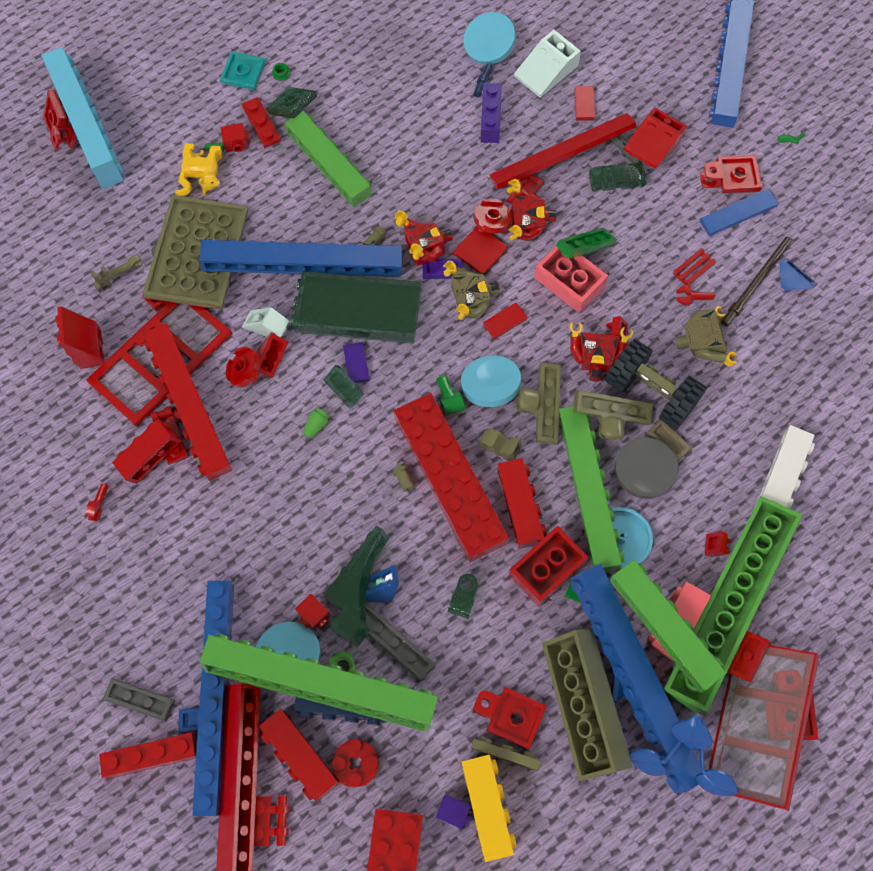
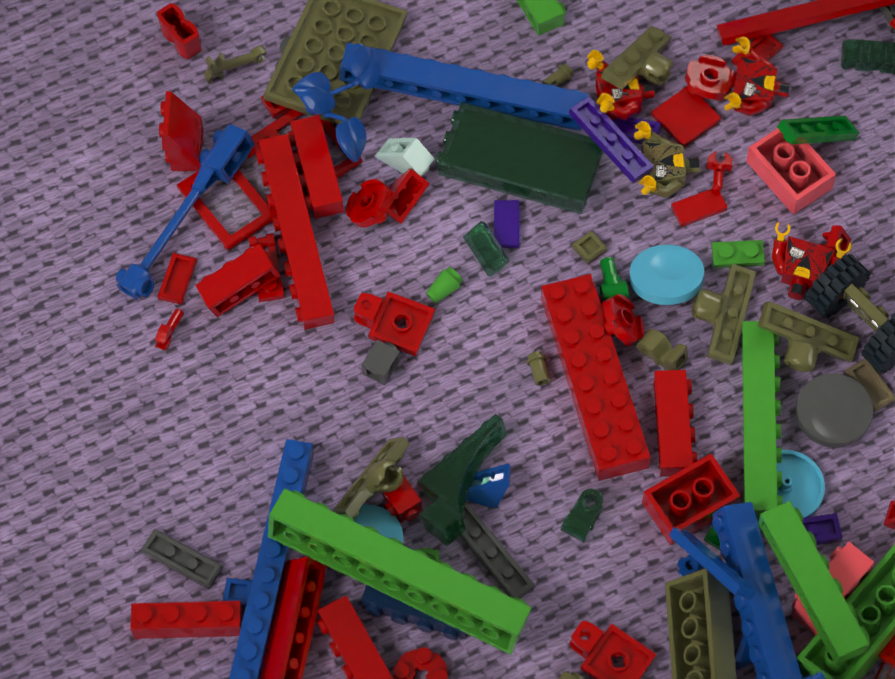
camera: 10 degrees right, 5 degrees down
(67, 254) = (179, 31): none -> red brick
(98, 458) = (177, 278): none -> red tile
(116, 356) = (216, 164): none -> blue bar
(180, 289) = (315, 94): none -> blue plant
(195, 344) = (316, 166): none -> red brick
(270, 458) = (381, 318): none -> red plate
(275, 497) = (381, 362): none -> dark grey brick
(288, 600) = (377, 477): none -> olive plate
(425, 369) = (589, 247): none -> olive tile
(426, 280) = (611, 139): none -> dark purple plate
(437, 211) = (642, 59): none -> olive plate
(463, 425) = (622, 320): none -> red plate
(508, 284) = (719, 169): none -> red bar
(543, 353) = (738, 252): none -> bright green plate
(563, 627) = (683, 564): none -> blue plate
(580, 624) = (712, 563): none -> blue tile
(659, 568) = (824, 528): none -> dark purple plate

